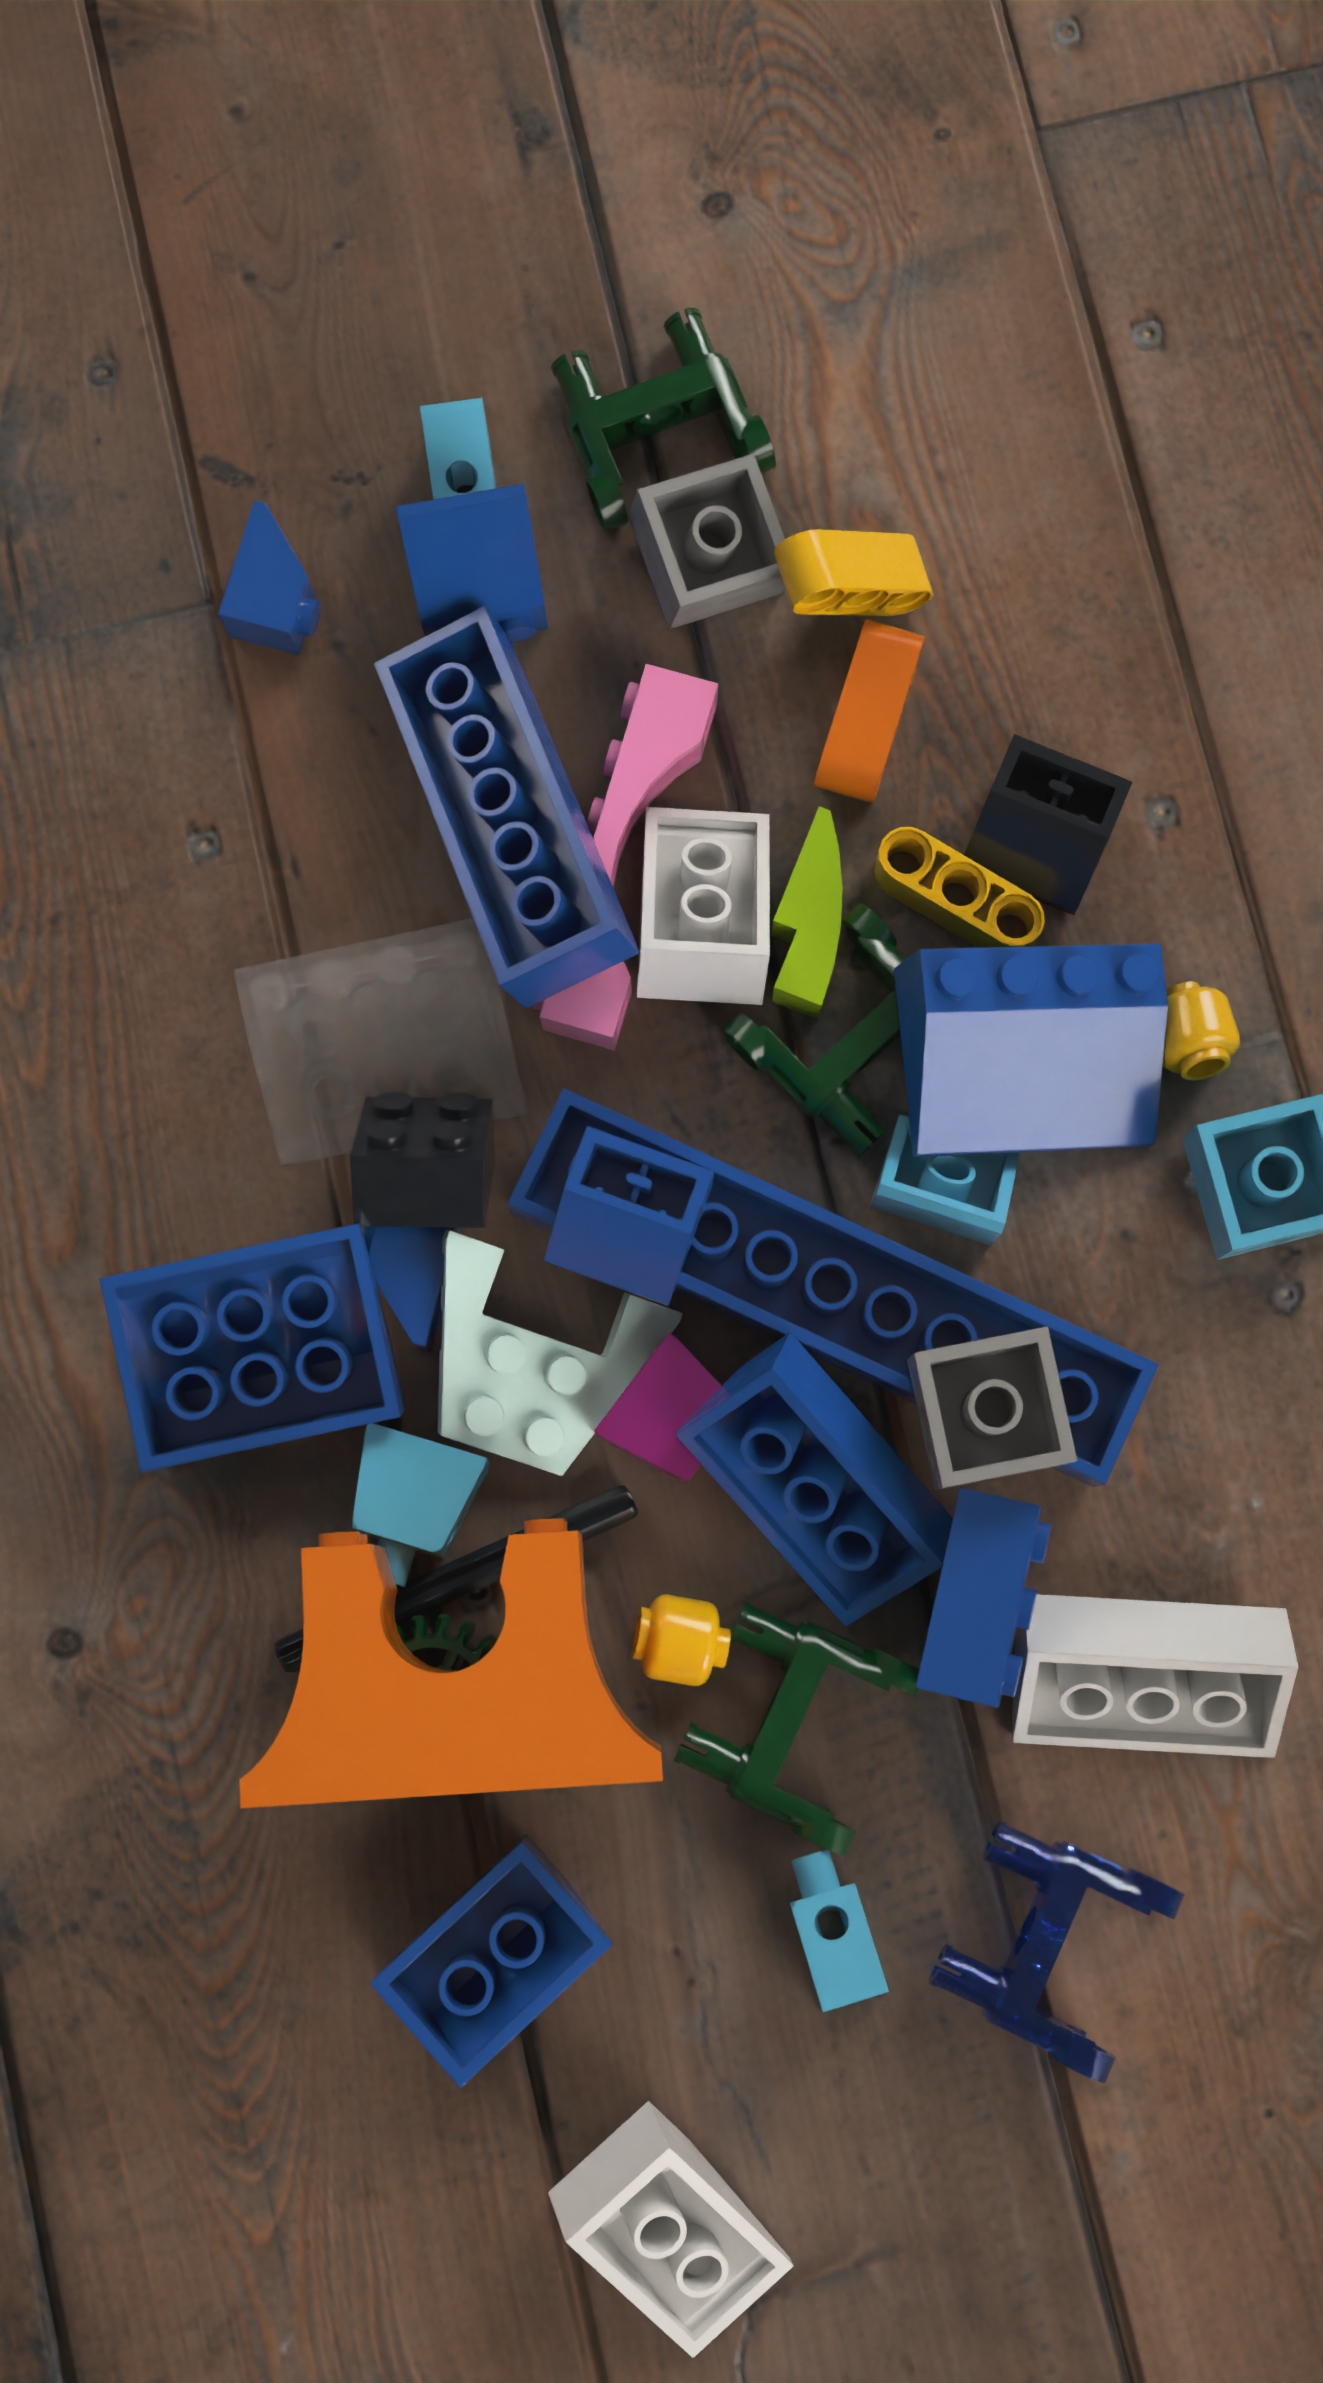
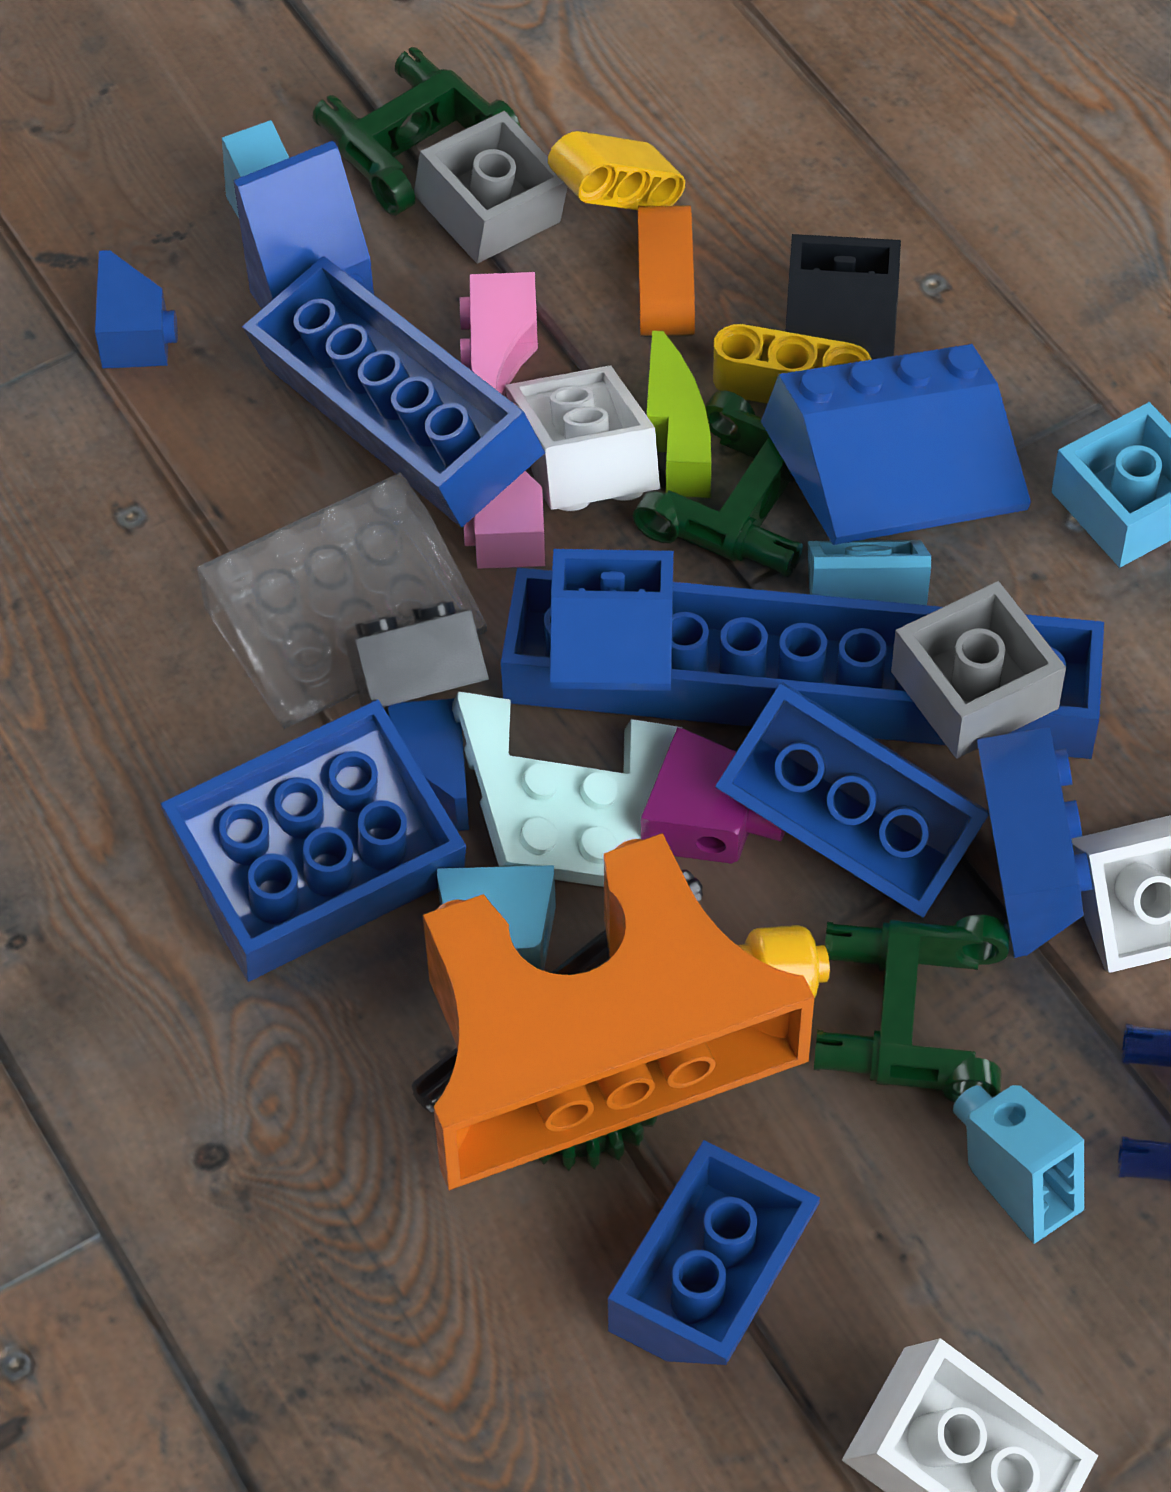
camera: 20 degrees left, 25 degrees down
(1199, 1031) = (1033, 408): yellow head -> none

